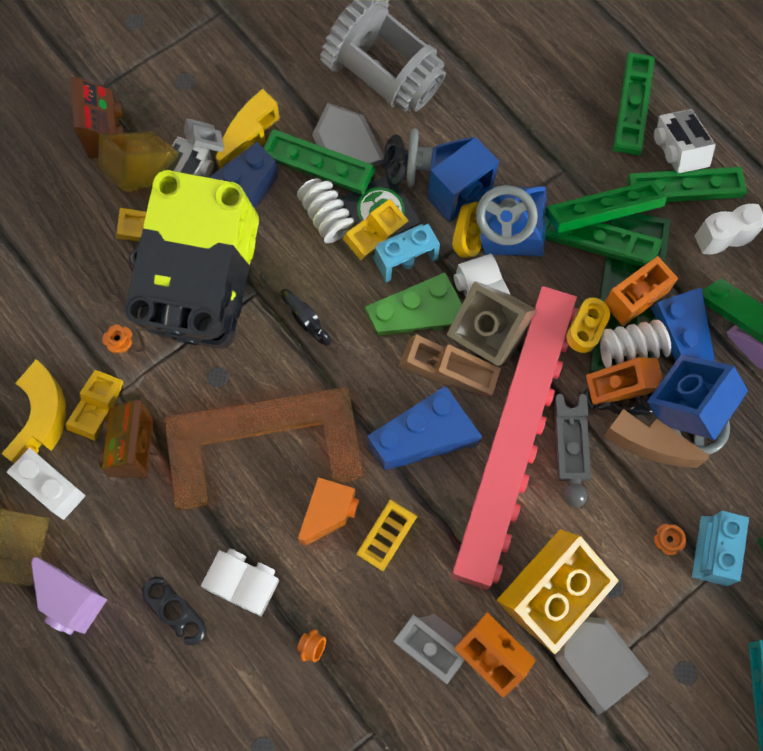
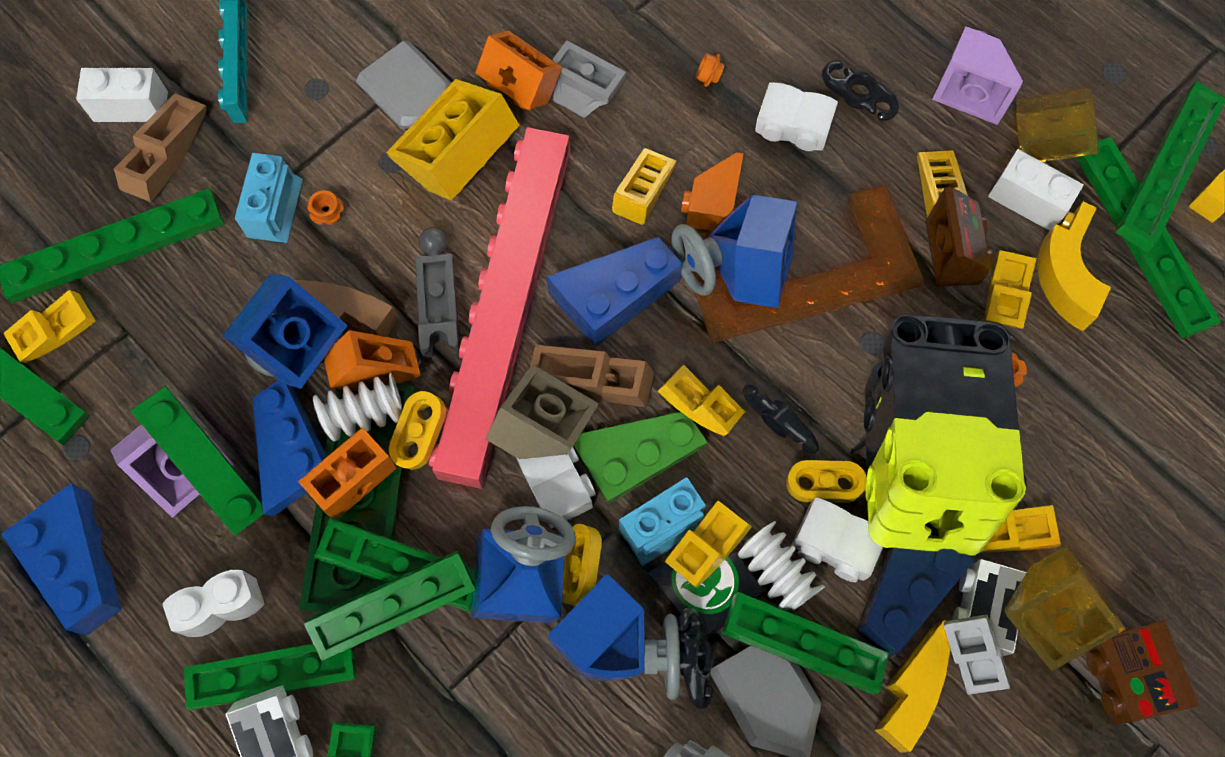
camera: 175 degrees right, 0 degrees up
(112, 506) = (954, 178): none -> yellow slope
(281, 267) = (824, 481): none -> yellow plate
(282, 227) = (837, 539): none -> white brick
(309, 441) = (748, 248): none -> blue piece
(365, 336) = (707, 408): none -> yellow slope

